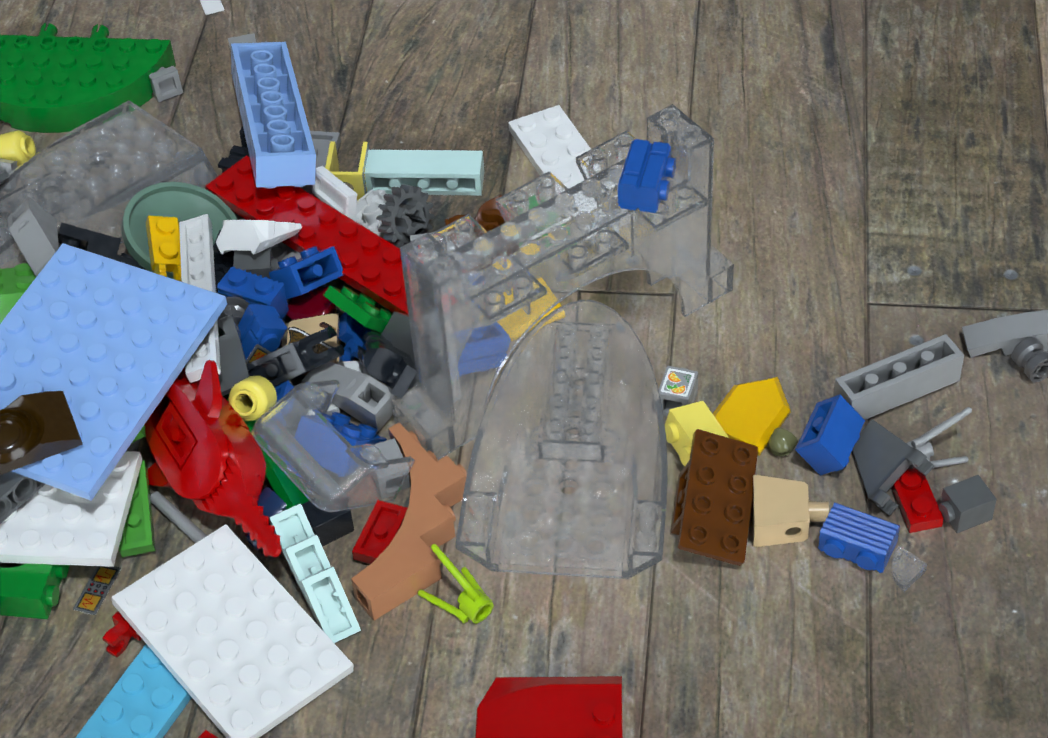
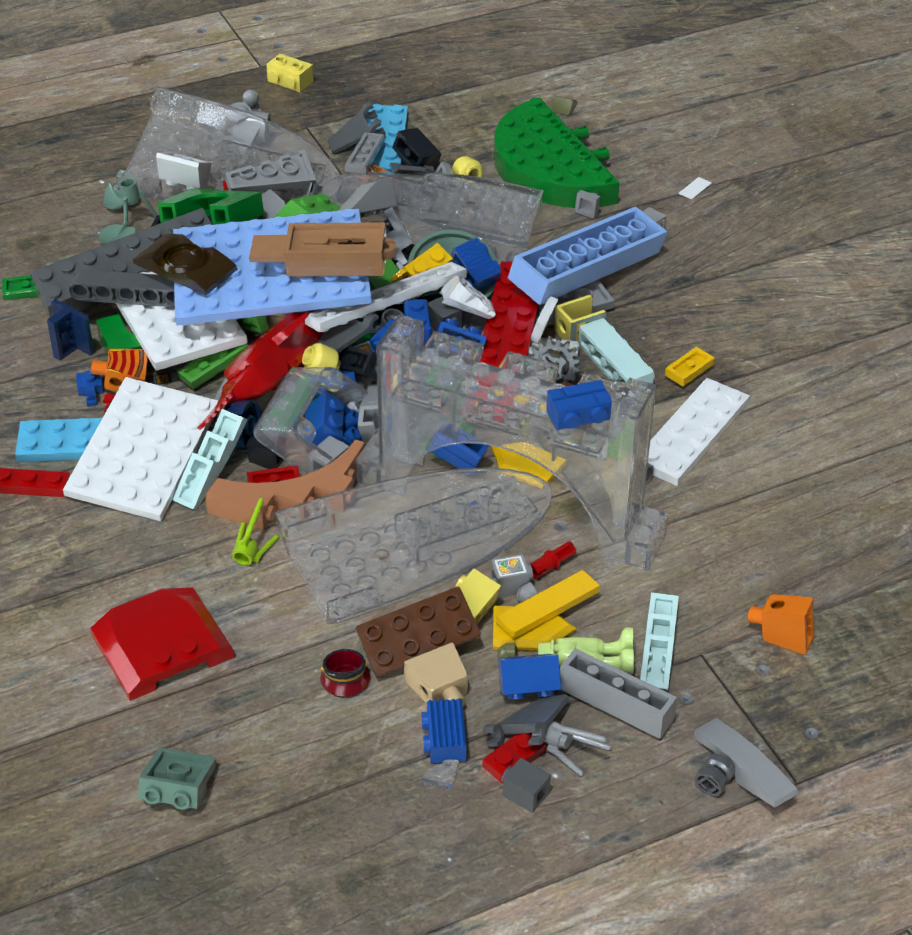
camera: 55 degrees right, 5 degrees down
(57, 649) = (89, 385): none -> blue plate
(75, 602) = (121, 364): none -> orange torso
(133, 292) = (327, 249): none -> medium nougat piece
(197, 199) = (480, 266): none -> blue brick
(481, 126) = (689, 366): none -> yellow plate
(673, 349) = (552, 559): none -> red axle
(710, 391) = (526, 592): none -> light grey hinge
(719, 590) = (344, 673): none -> dark red piece
(741, 380) = (548, 604): none -> yellow tile
(818, 381) = (620, 651): none -> yellowish green piece
(838, 323) = (659, 640): none -> light aqua slope
(885, 218) = (786, 621): none -> orange torso

